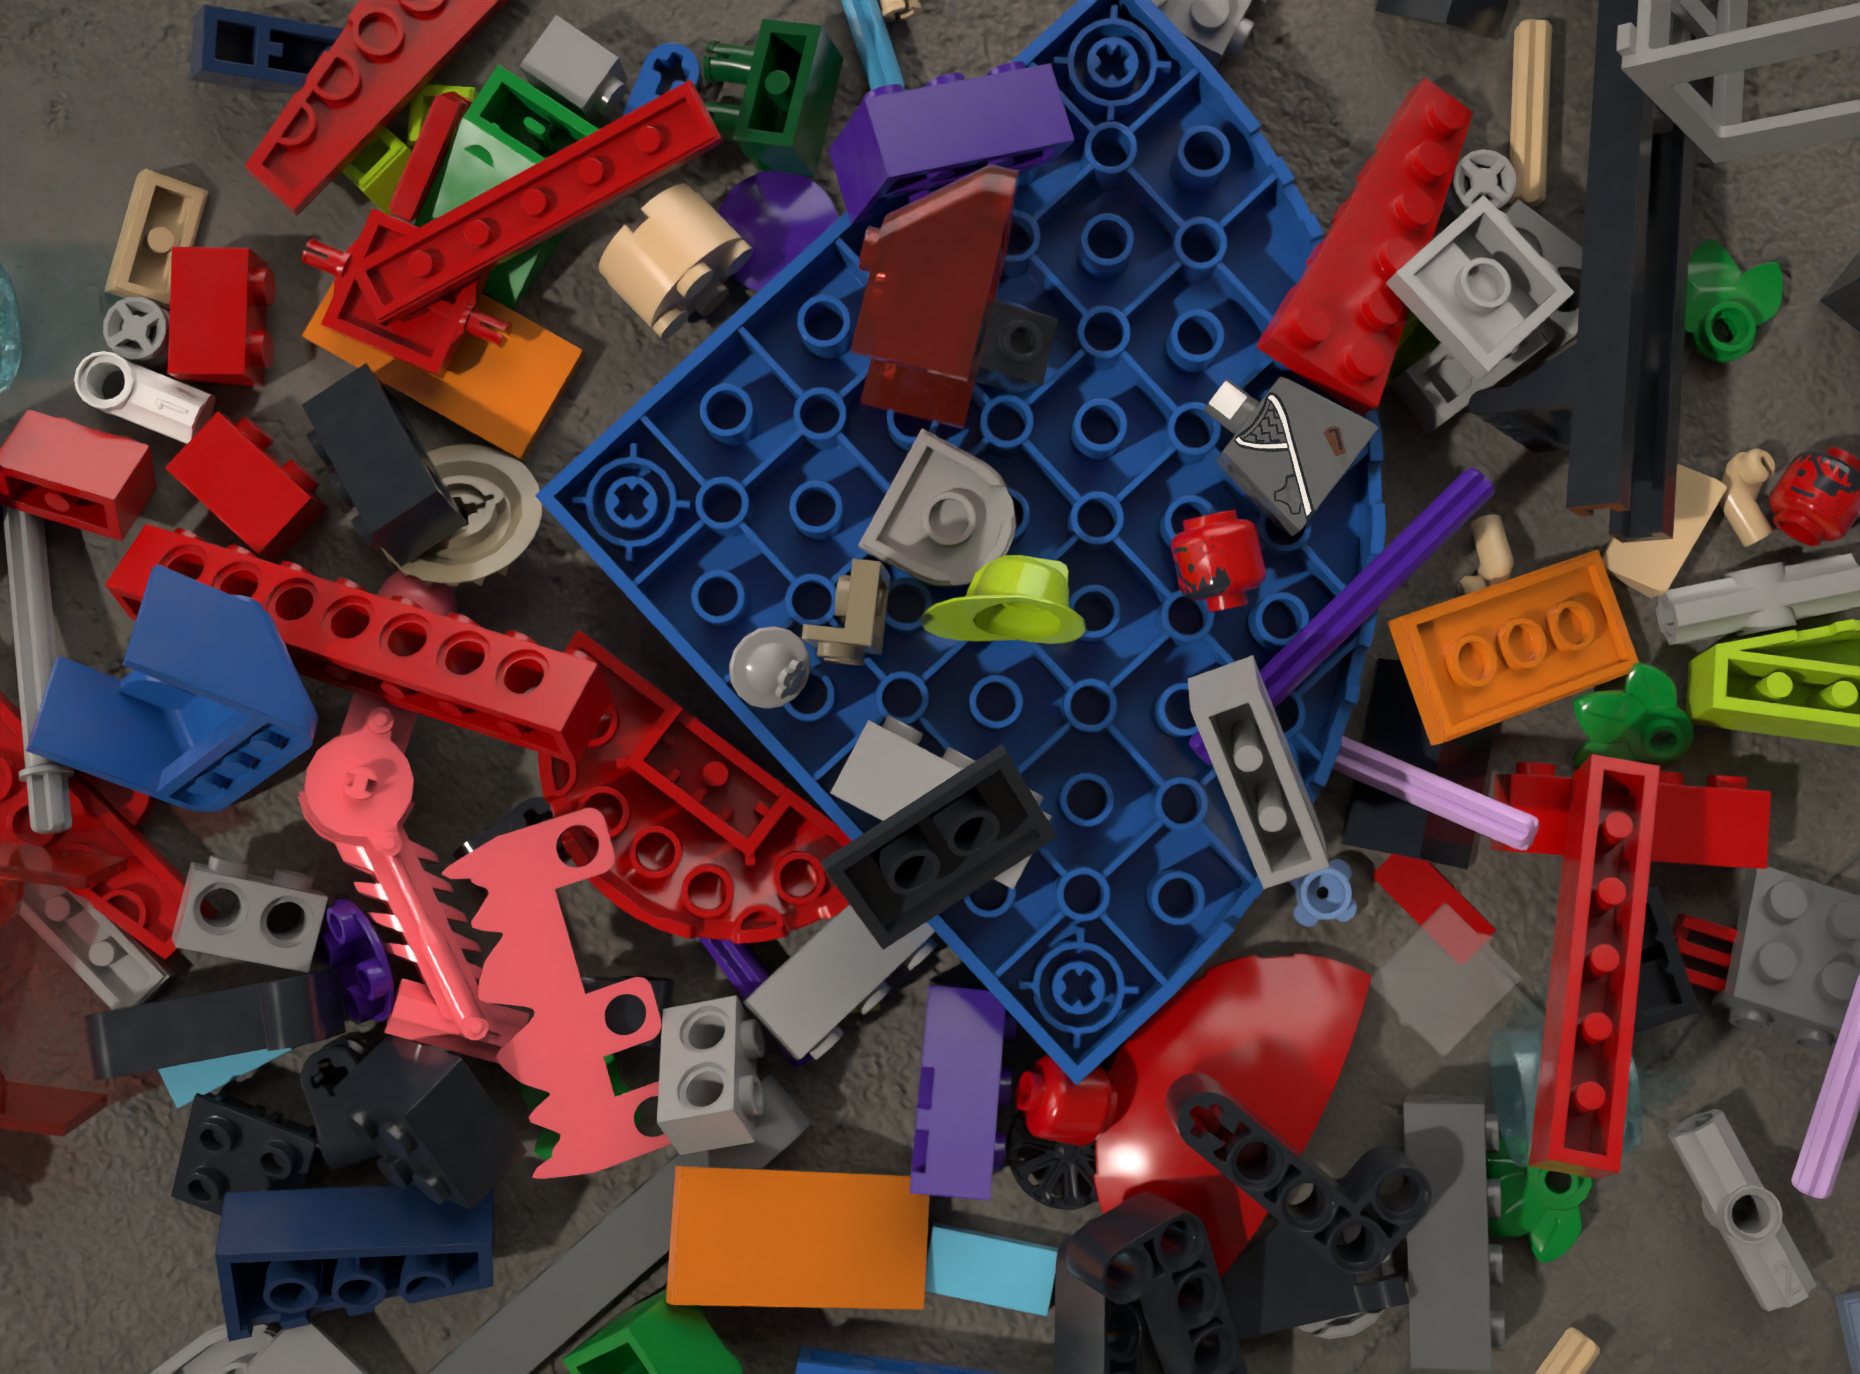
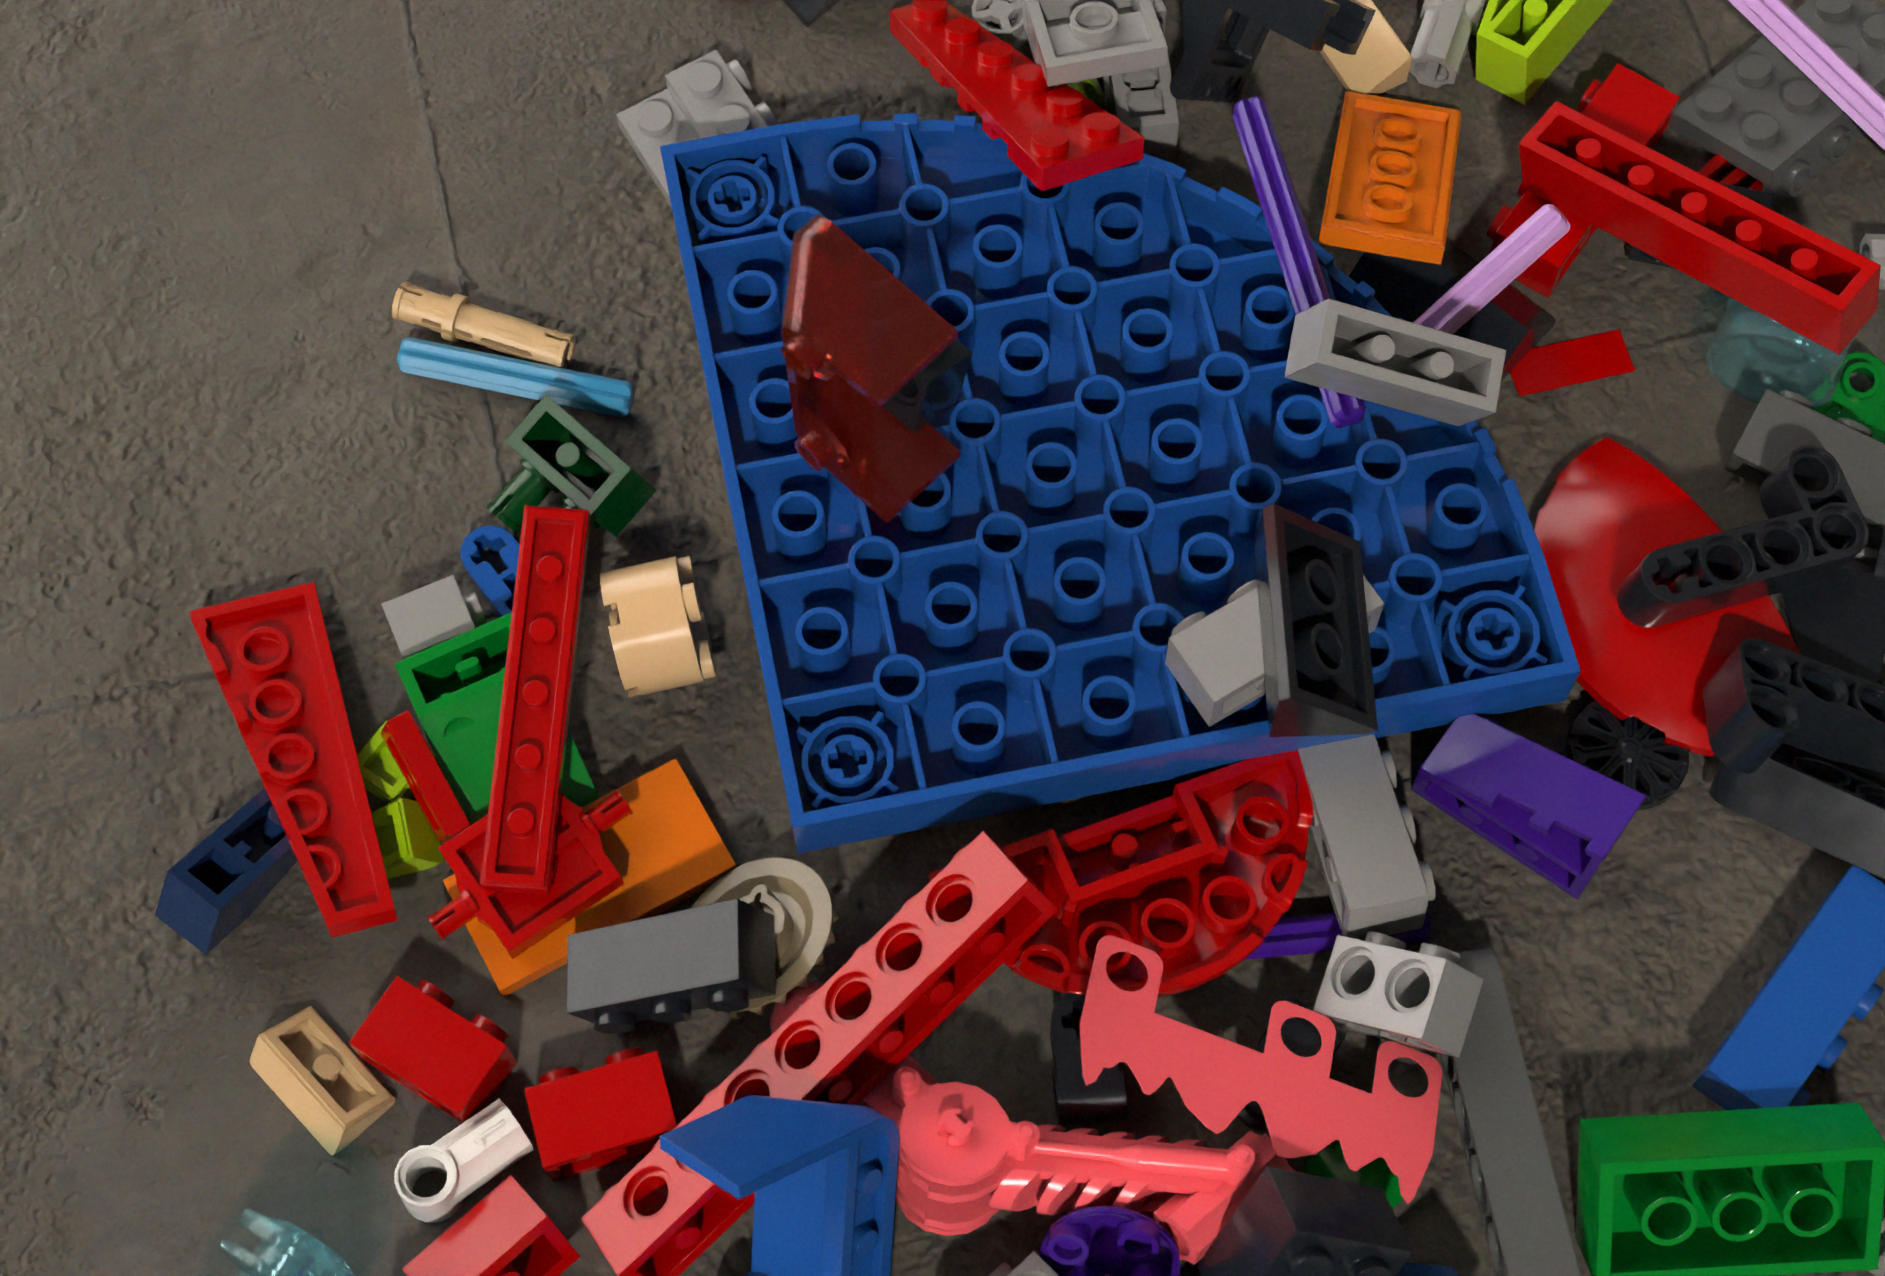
camera: 60 degrees left, 20 degrees down
(130, 323) = (390, 1121): light grey wheel -> none
(769, 667) = (1069, 706): light grey hat -> none
(778, 219) = (682, 527): dark purple dish -> none
(796, 1239) = (1591, 1004): orange tile -> none
(863, 607) = (1074, 596): dark tan bracket -> none
(942, 516) = (1025, 508): light grey tile -> none
(946, 131) = (715, 326): dark purple wedge -> none
(990, 1269) = (1704, 877): medium azure tile -> none
(1010, 601) = (1137, 482): lime piece -> none
(1062, 1110) = (1587, 714): red head -> none
(1218, 560) = (1196, 313): red head -> none
(1287, 447) = (1137, 221): dark grey torso -> none
(1337, 903) = (1526, 424): medium blue plate -> none
(1444, 979) = (1640, 386): clear piece -> none
(1493, 553) = (1315, 169): tan arm -> none
(1627, 719) = (1496, 133): green plate -> none

